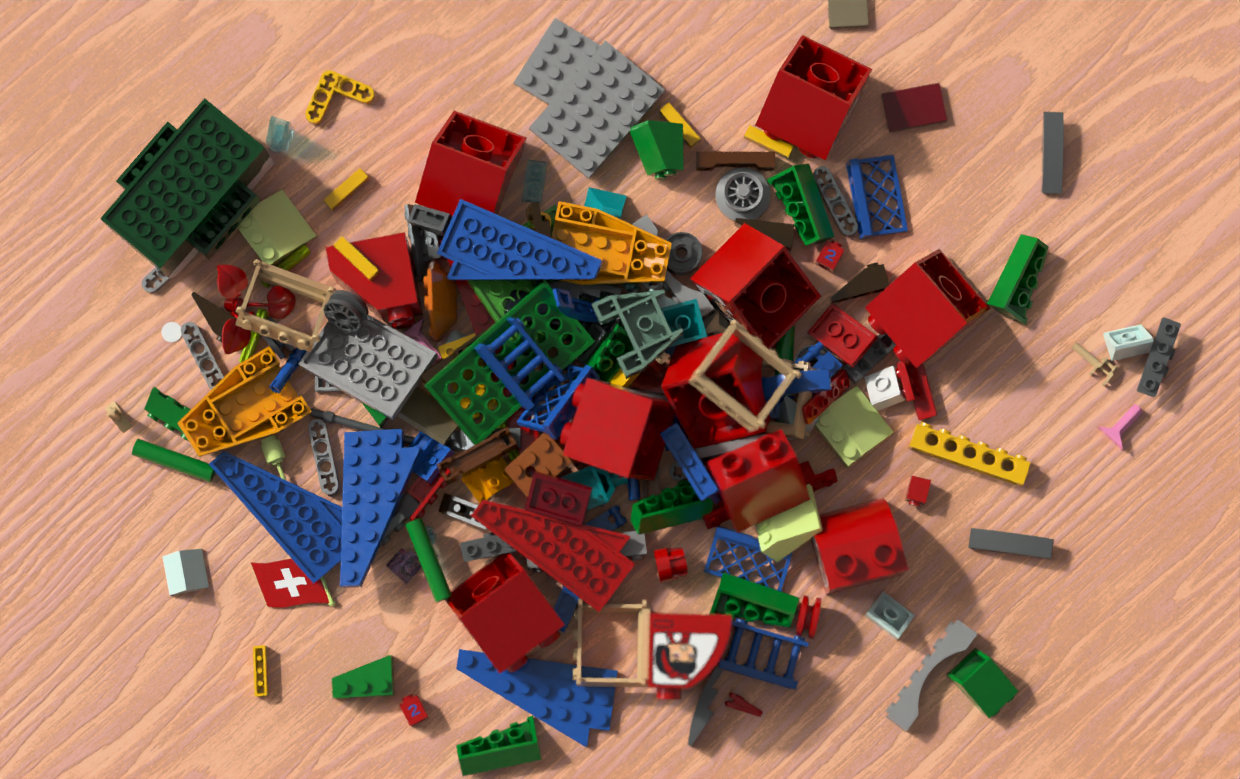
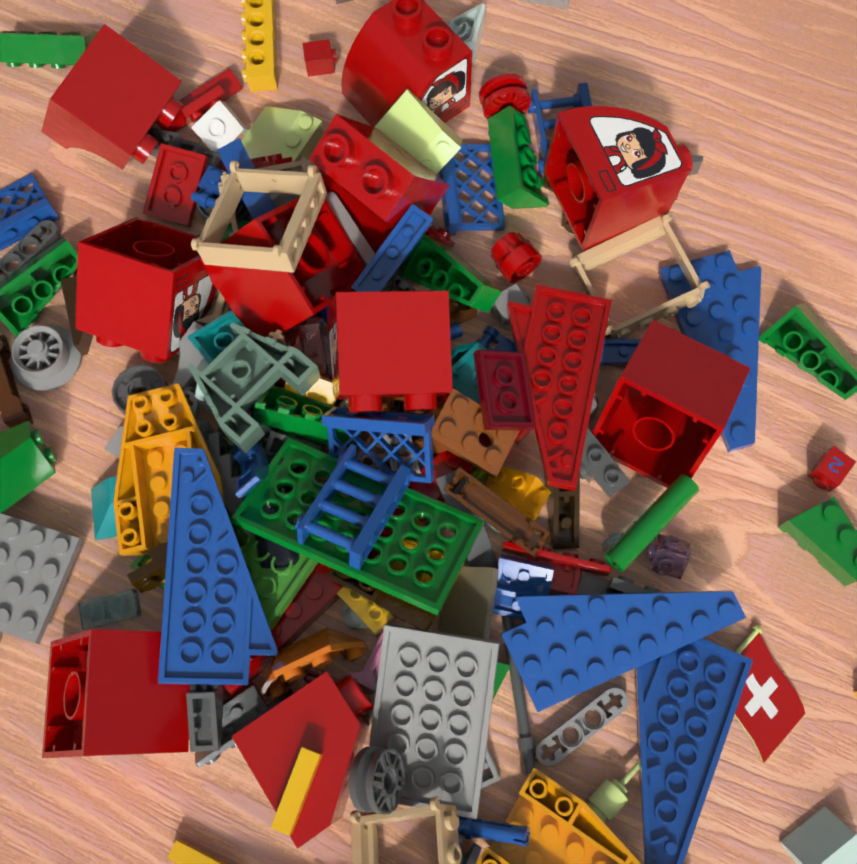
camera: 115 degrees left, 10 degrees down
(830, 255) = (82, 229): red brick -> none
(867, 282) = (106, 189): dark brown slope -> none

